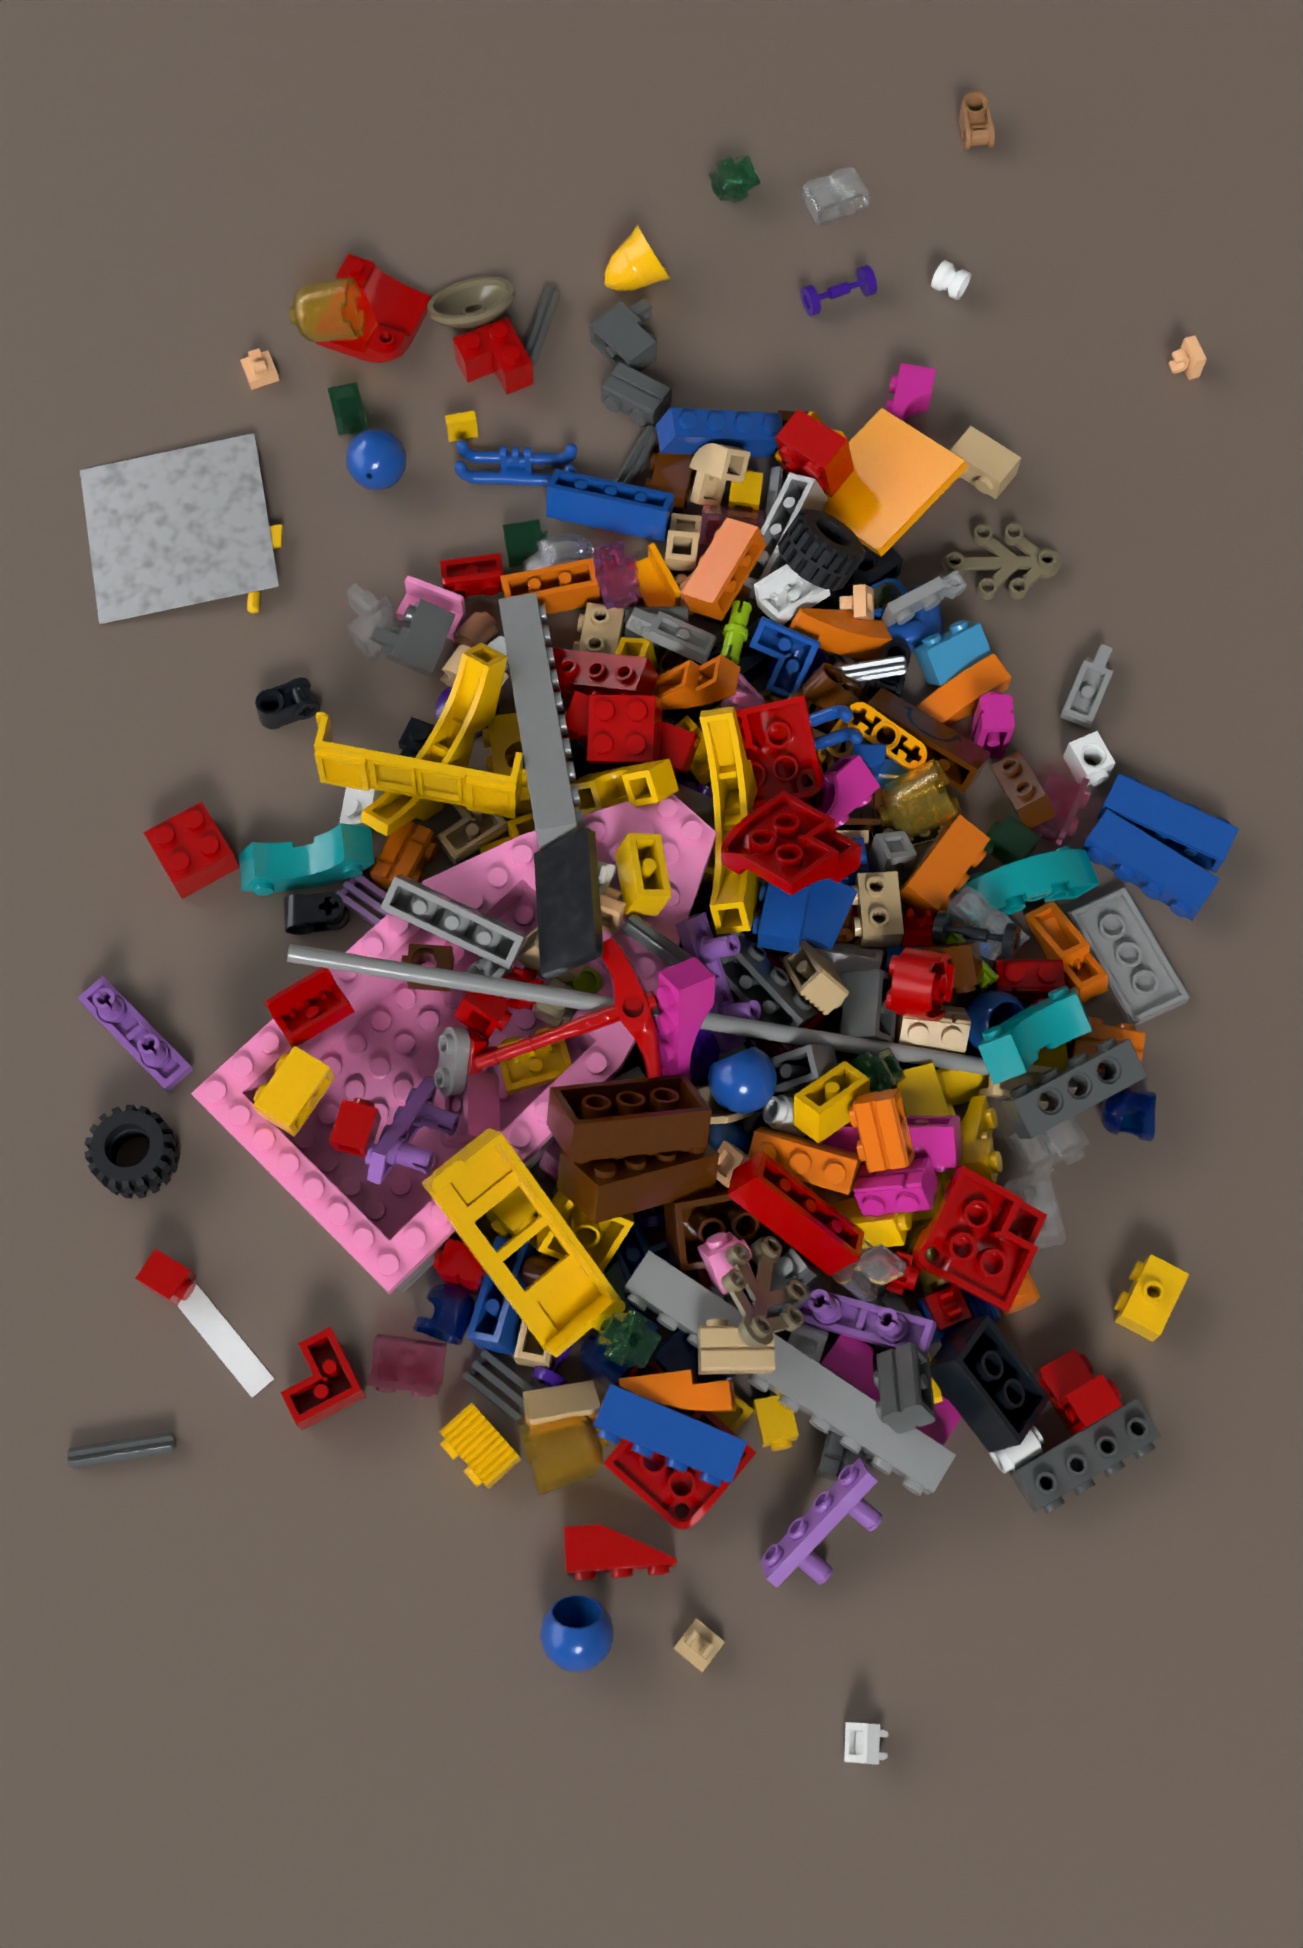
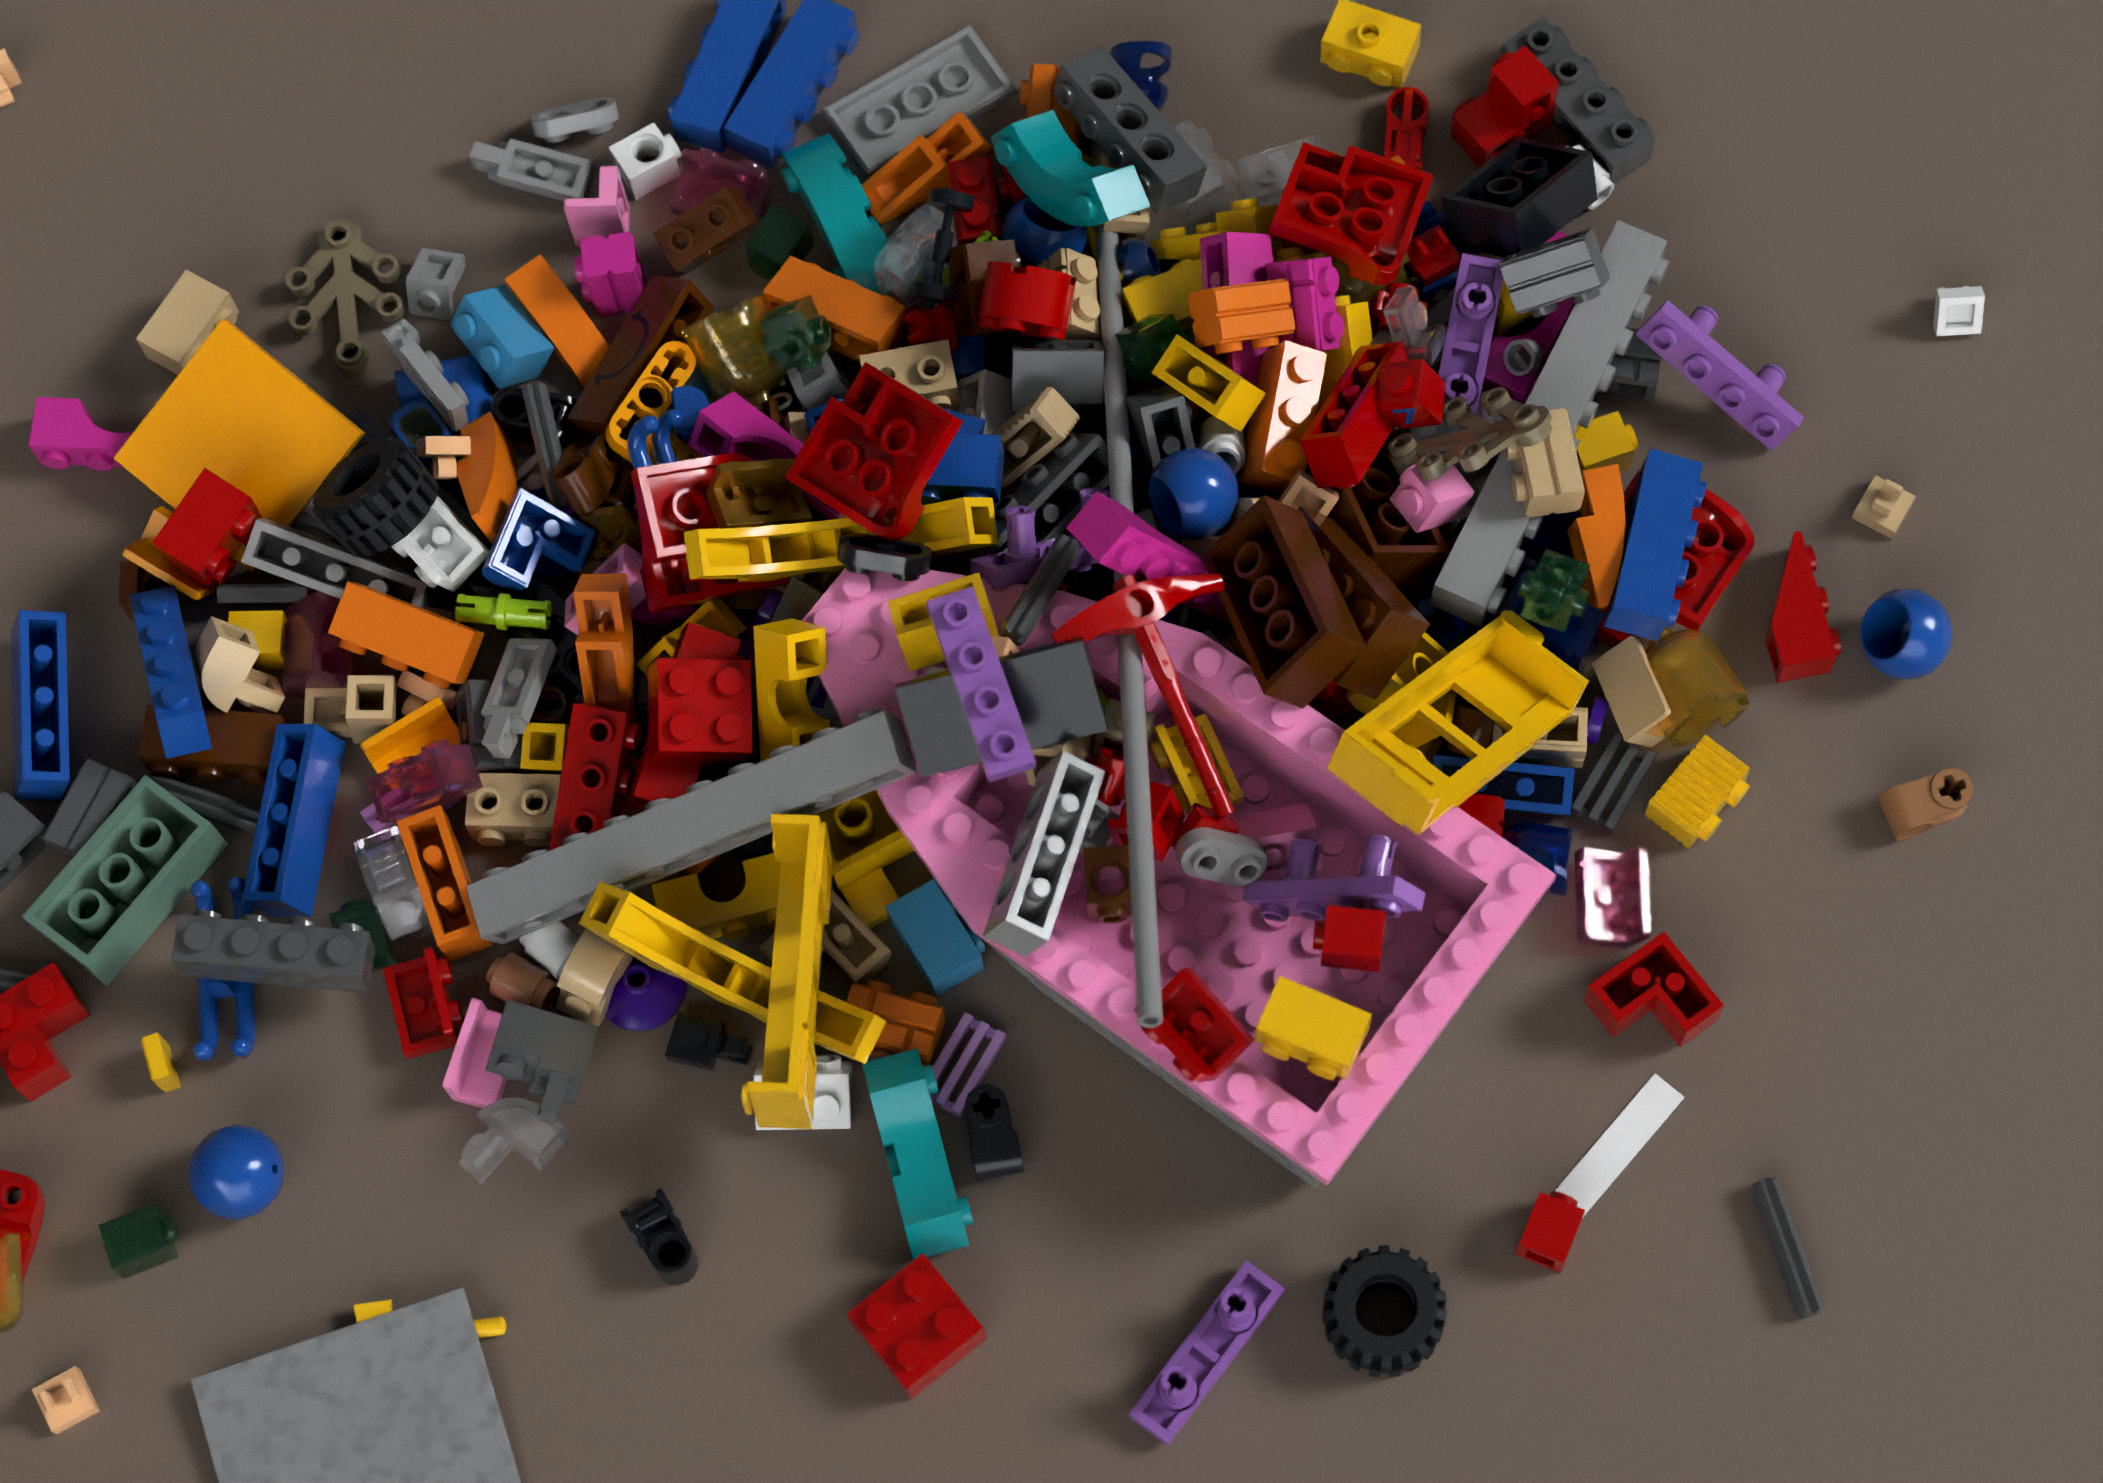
camera: 90 degrees left, 0 degrees up
(440, 1617) = (1918, 806): none -> medium nougat piece
(507, 477) = (273, 952): none -> dark grey brick
(572, 877) = (980, 684): none -> medium lavender plate
(584, 408) = (125, 880): none -> sand green slope
(706, 853) = (873, 553): none -> black plate
(714, 365) = (40, 706): none -> blue brick
(778, 772) = (756, 495): none -> pearl gold bracket
(806, 1253) = (1411, 394): none -> red brick
(848, 1364) = (1520, 362): none -> light grey hinge
(918, 829) = (796, 334): none -> clear green brick
(963, 1085) = (1138, 259): none -> dark blue plate
(1005, 616) = (433, 283): none -> light grey bracket
(1045, 727) = (600, 215): none -> bright pink panel
(1066, 1313) = (1406, 136): none -> red piece
(1128, 716) = (589, 115): none -> light grey plate

